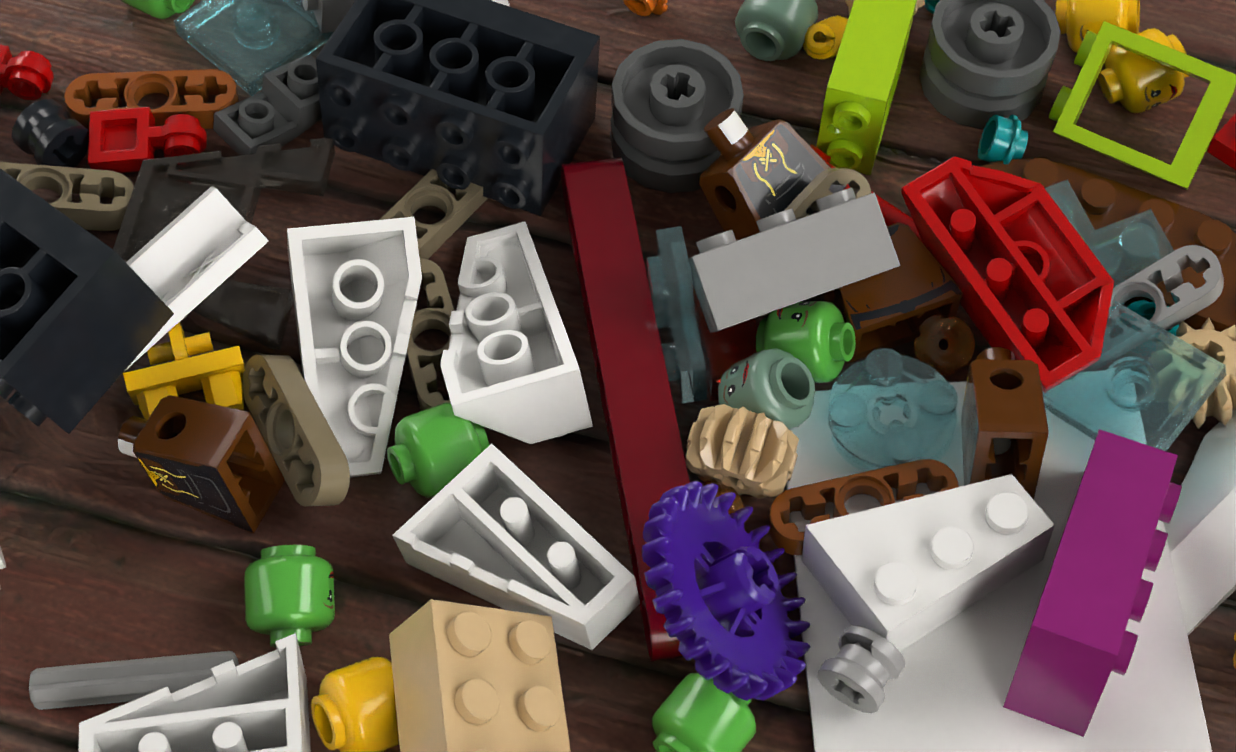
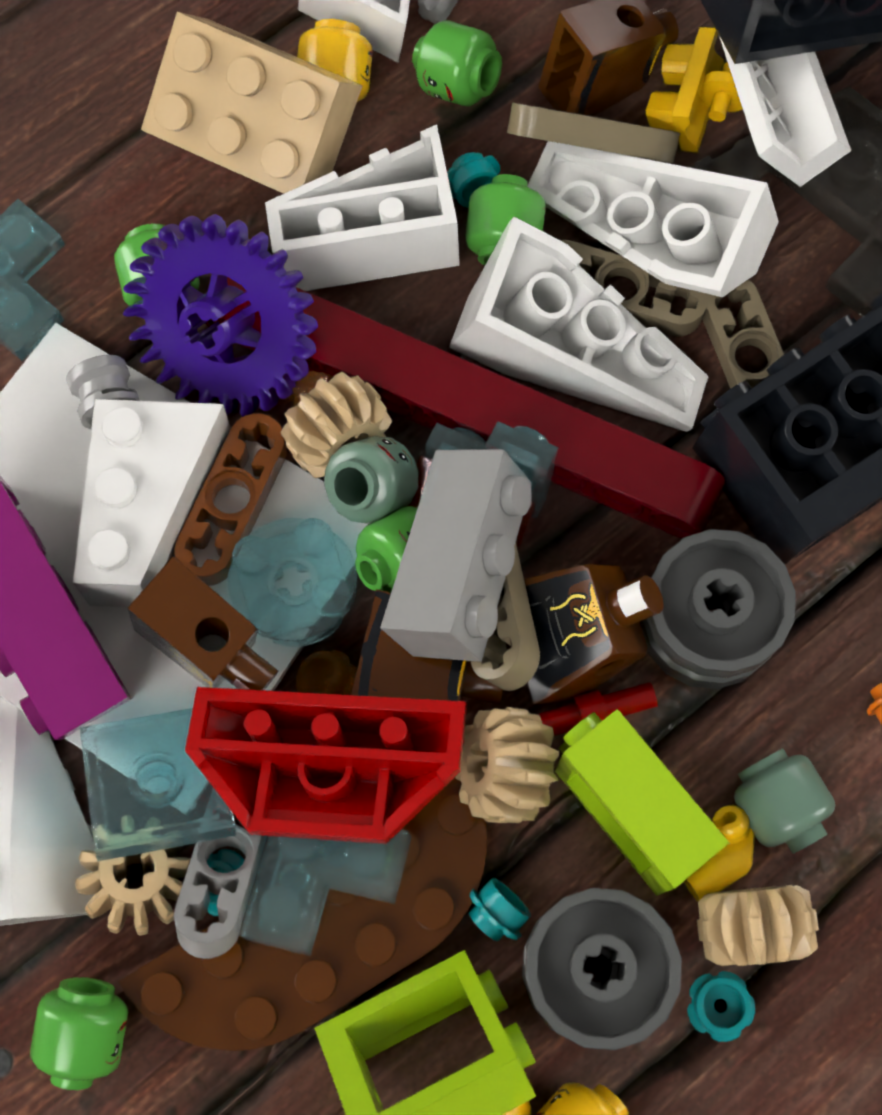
camera: 130 degrees right, 15 degrees up
(398, 507) = (469, 173): none -> teal plate
(906, 152) = (507, 765): none -> tan gear

